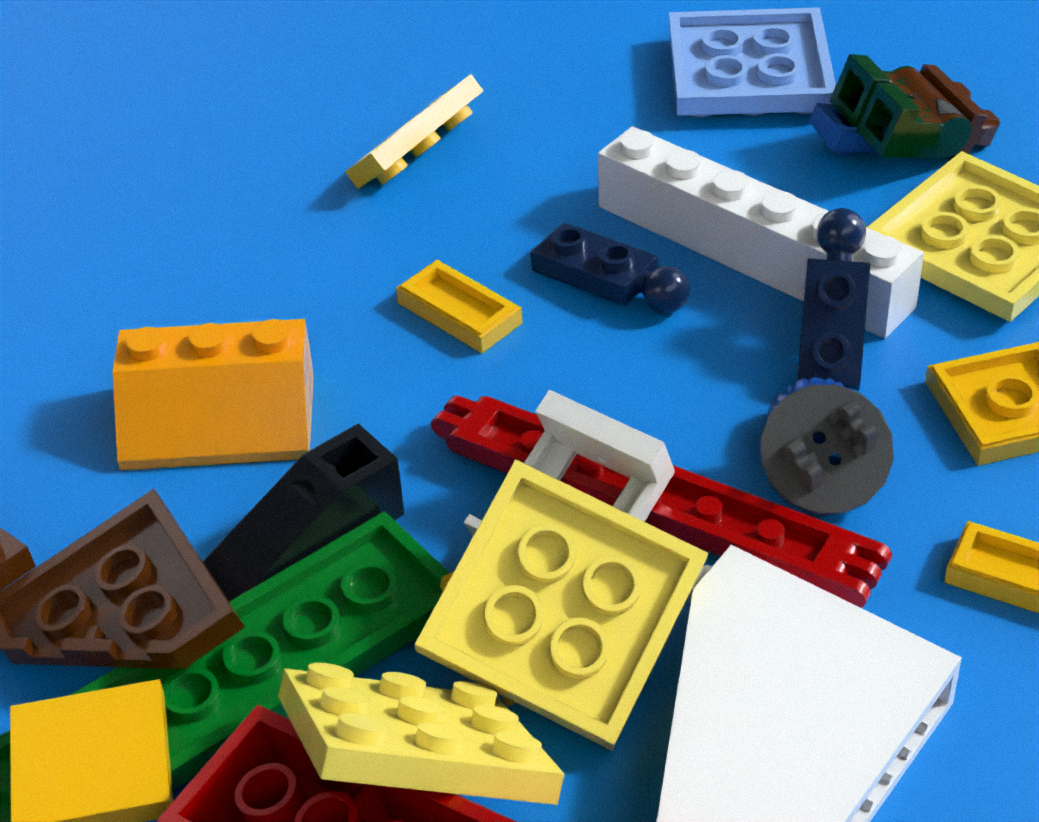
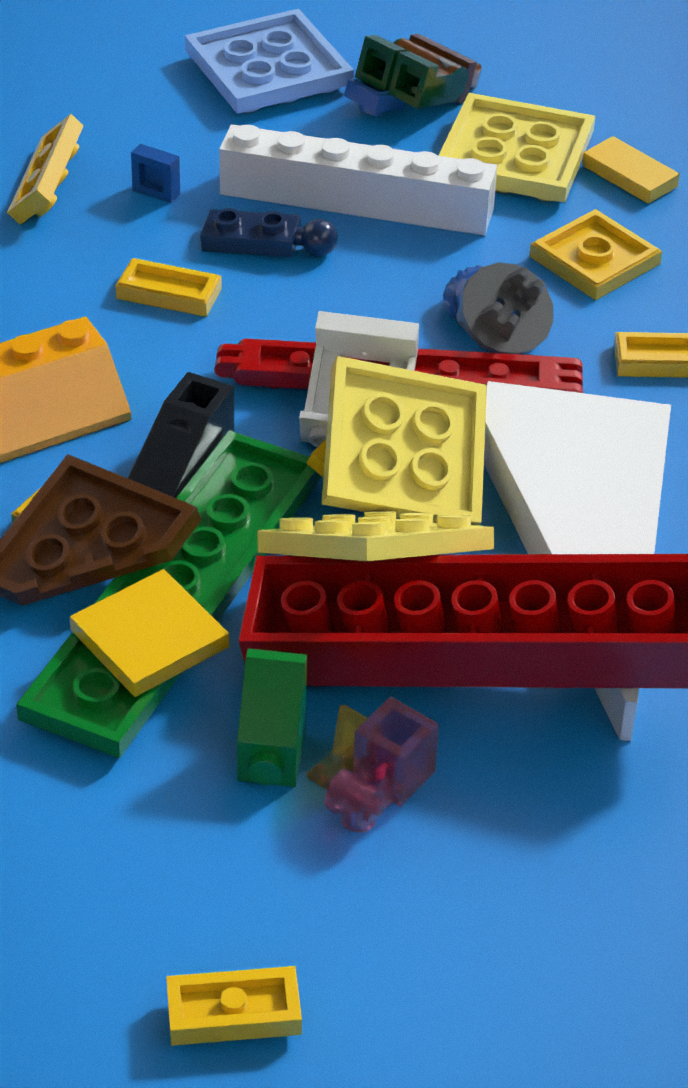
camera: 30 degrees left, 0 degrees up
(529, 164) = (155, 173): none -> blue plate
(835, 303) = (455, 213): dark blue plate -> none

